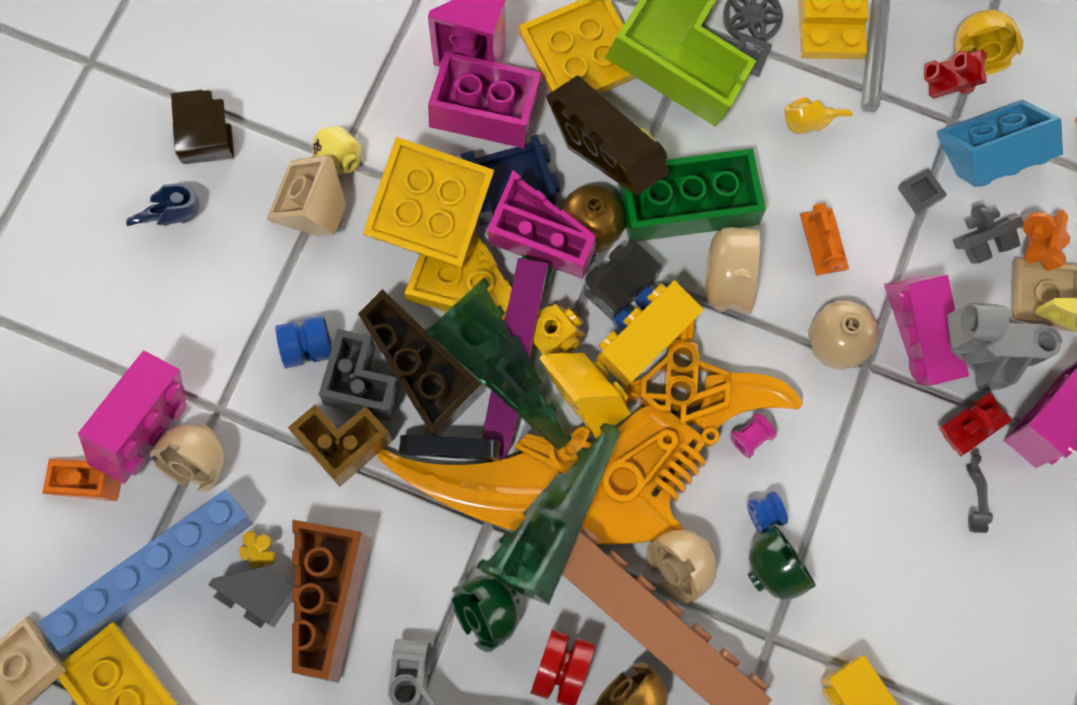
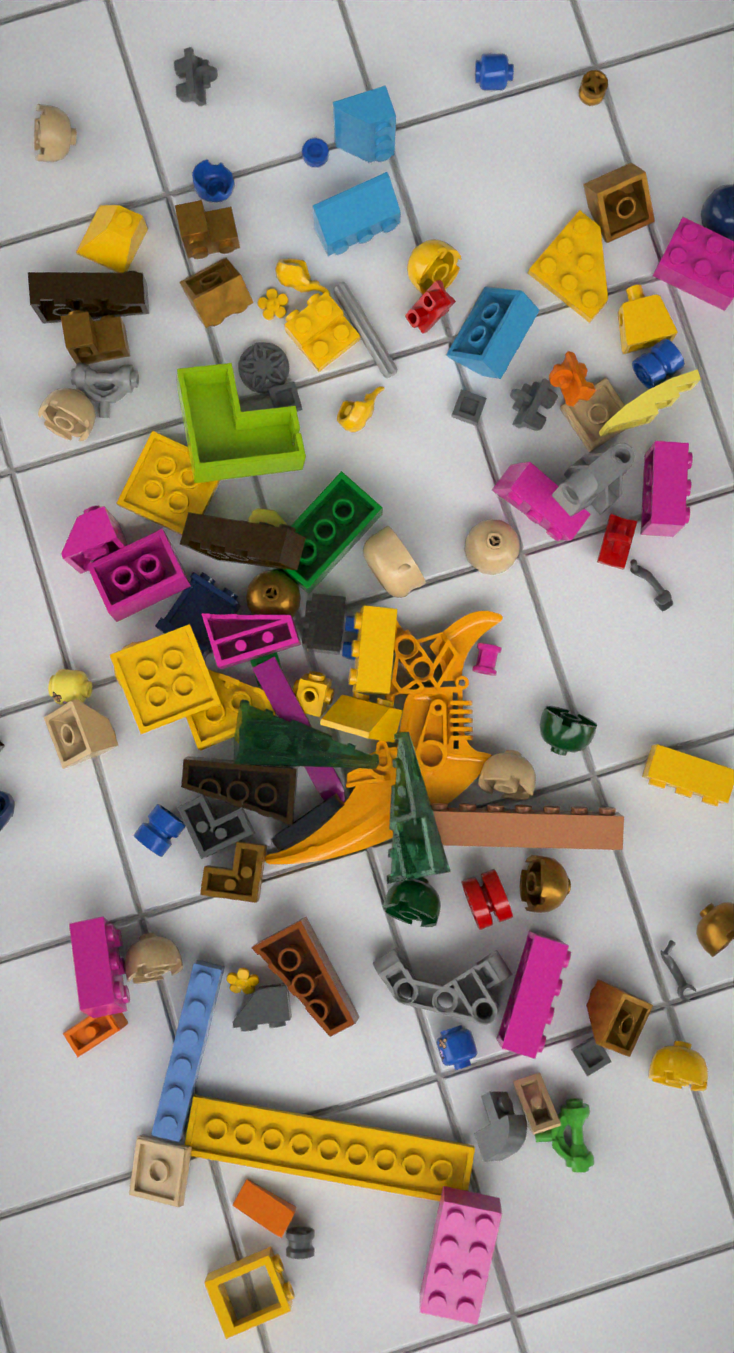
camera: 35 degrees left, 10 degrees up
(767, 512) = (533, 701): blue wheel -> none
(824, 240) = (432, 492): orange hinge -> none

